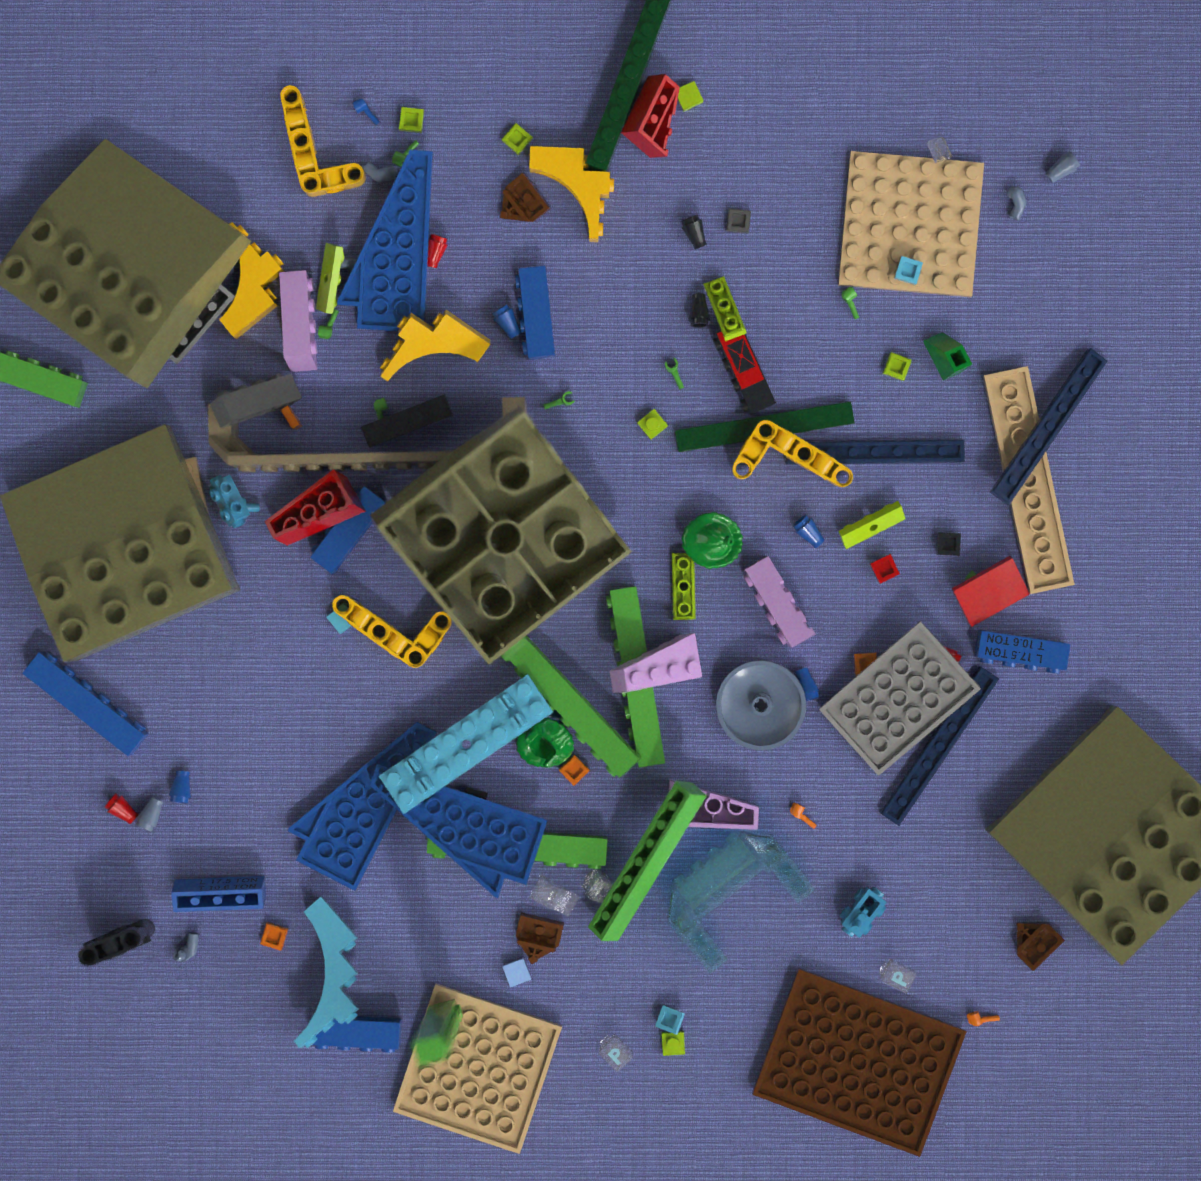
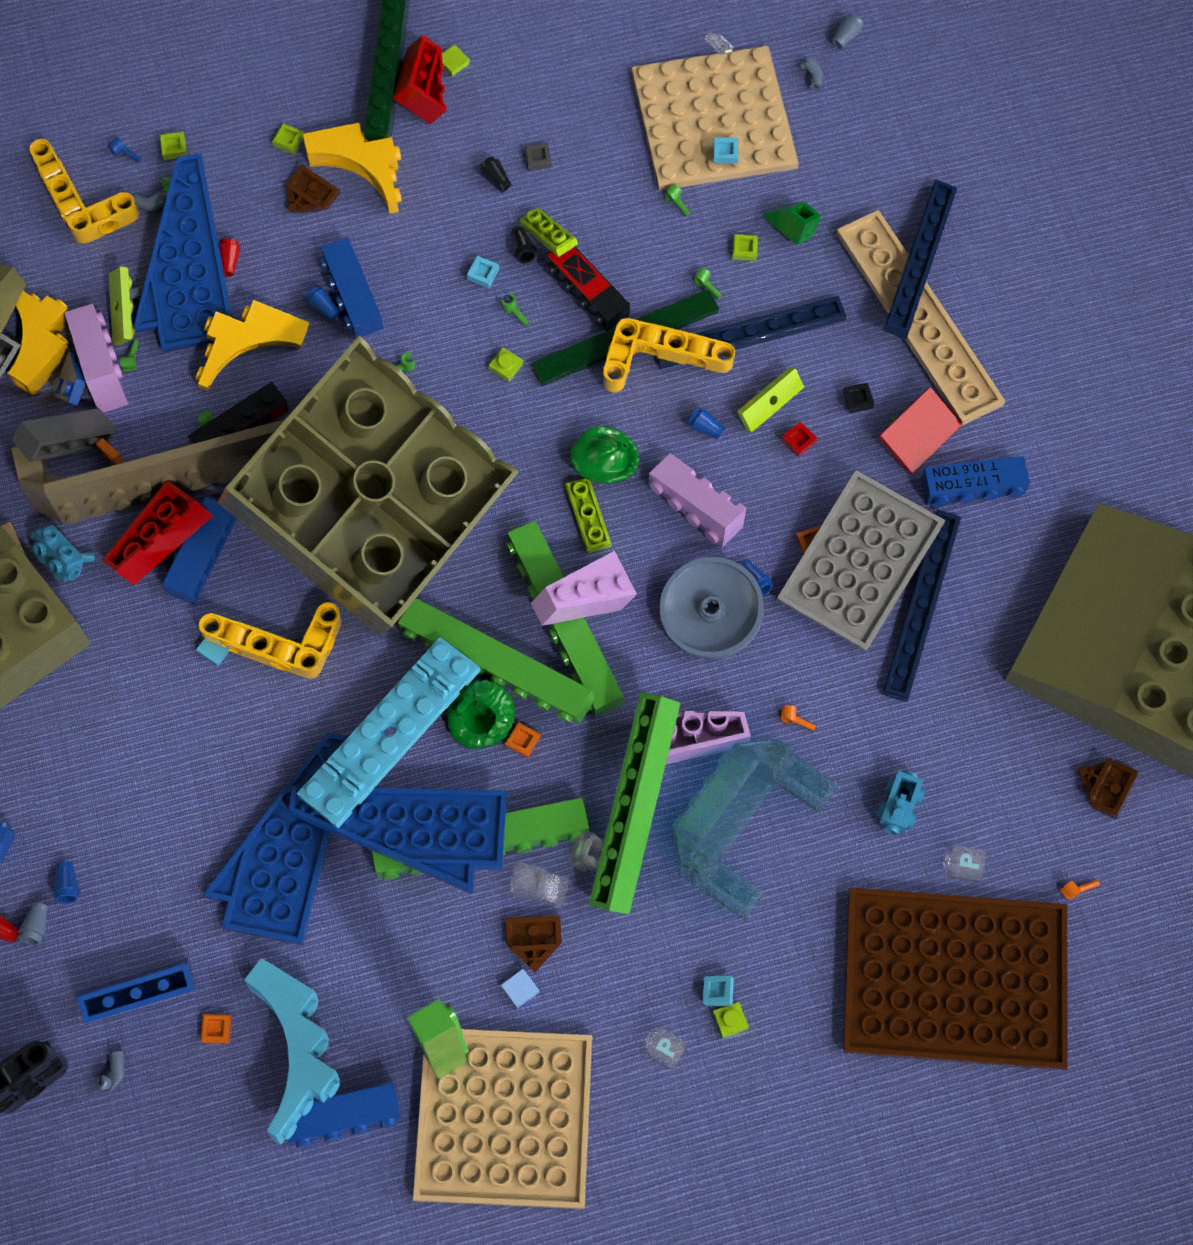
camera: 15 degrees left, 20 degrees down
(270, 343) = (70, 382): none -> wing
(656, 328) = (483, 272): none -> medium azure plate
(848, 388) = (701, 280): none -> bright green hand

